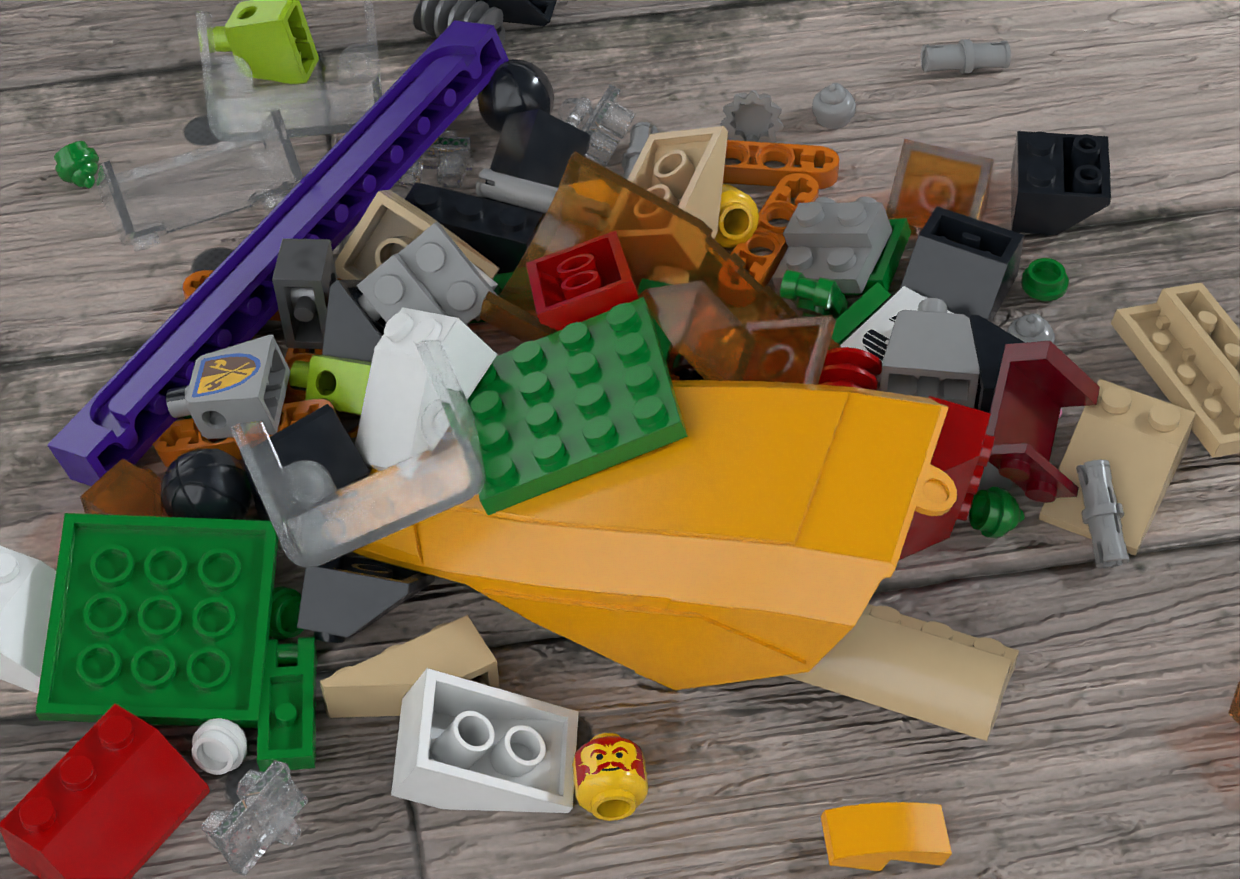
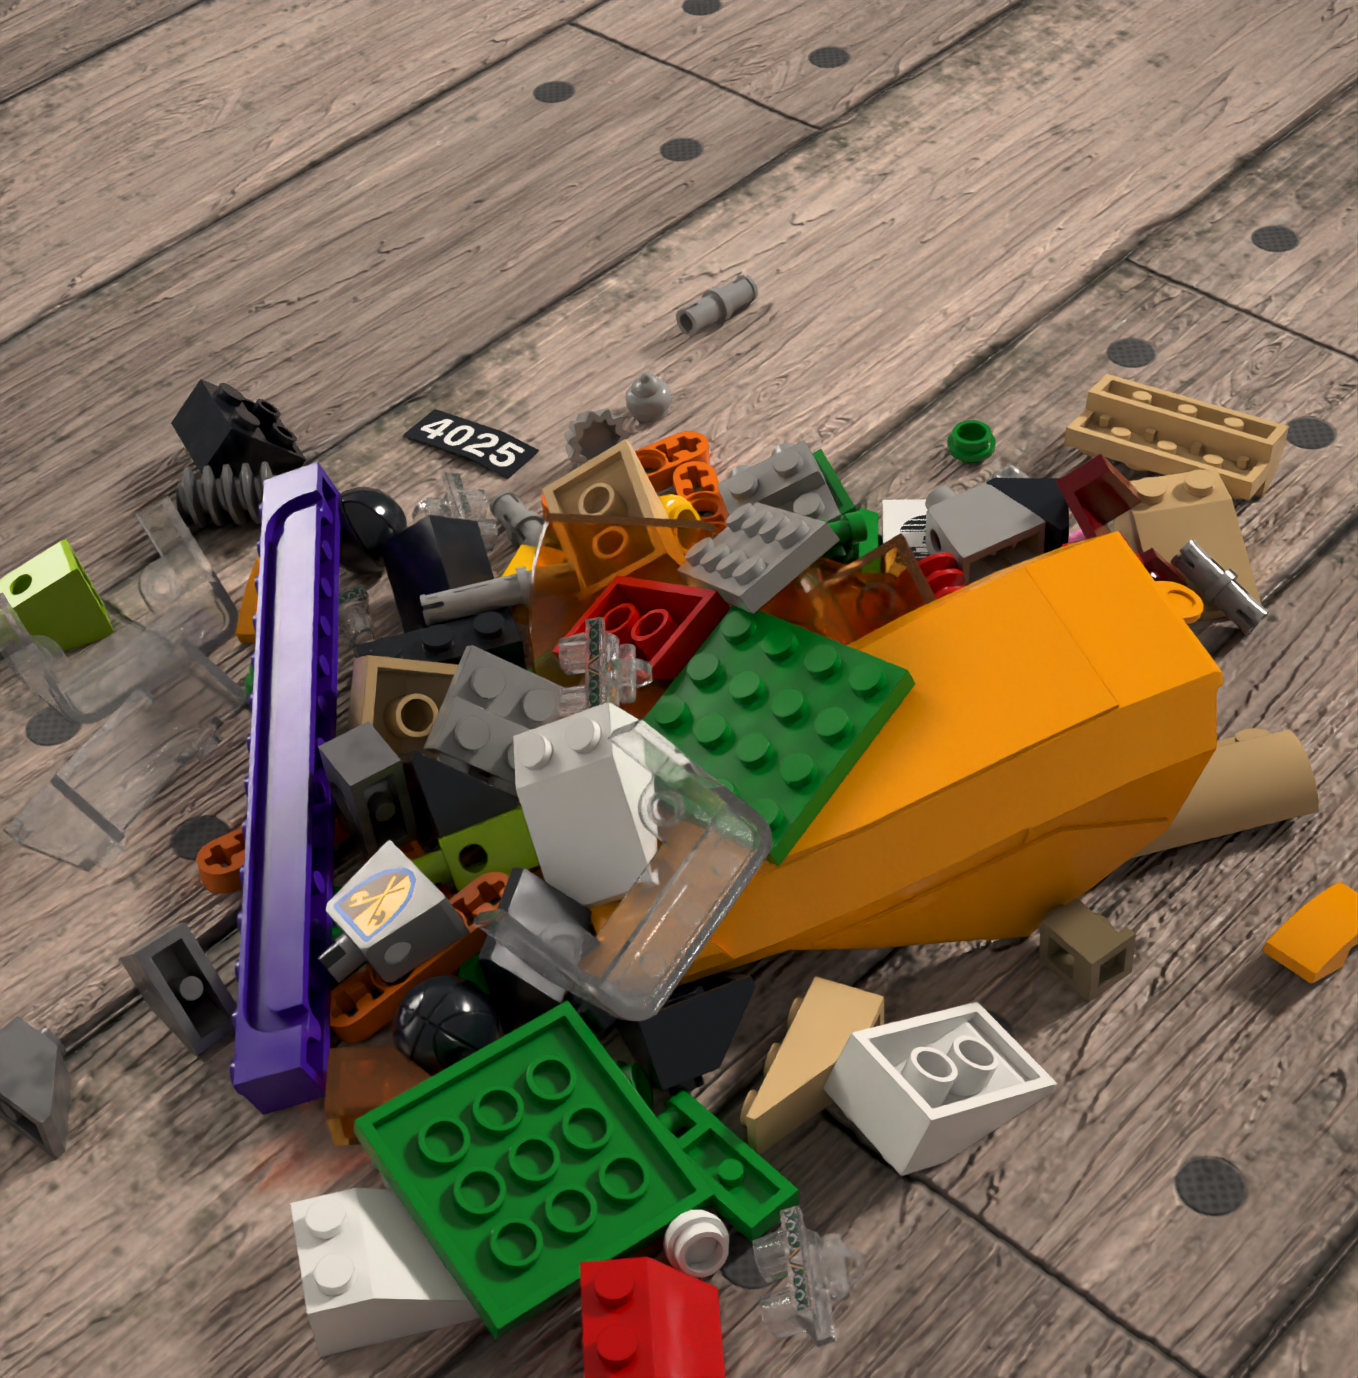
camera: 35 degrees left, 5 degrees down
(91, 354) = (182, 987): none -> flat silver slope
(493, 296) = (609, 669): none -> clear hips
(610, 776) = (1067, 1033): yellow head -> none
(678, 72) = (473, 440): none -> black sticker
(685, 267) = (756, 554): none -> light grey plate
(690, 725) = (1085, 949): none -> dark tan brick
(941, 178) = (825, 410): clear orange slope -> none
(964, 263) = (904, 456): black slope -> none
(1058, 180) = (905, 360): black slope -> none

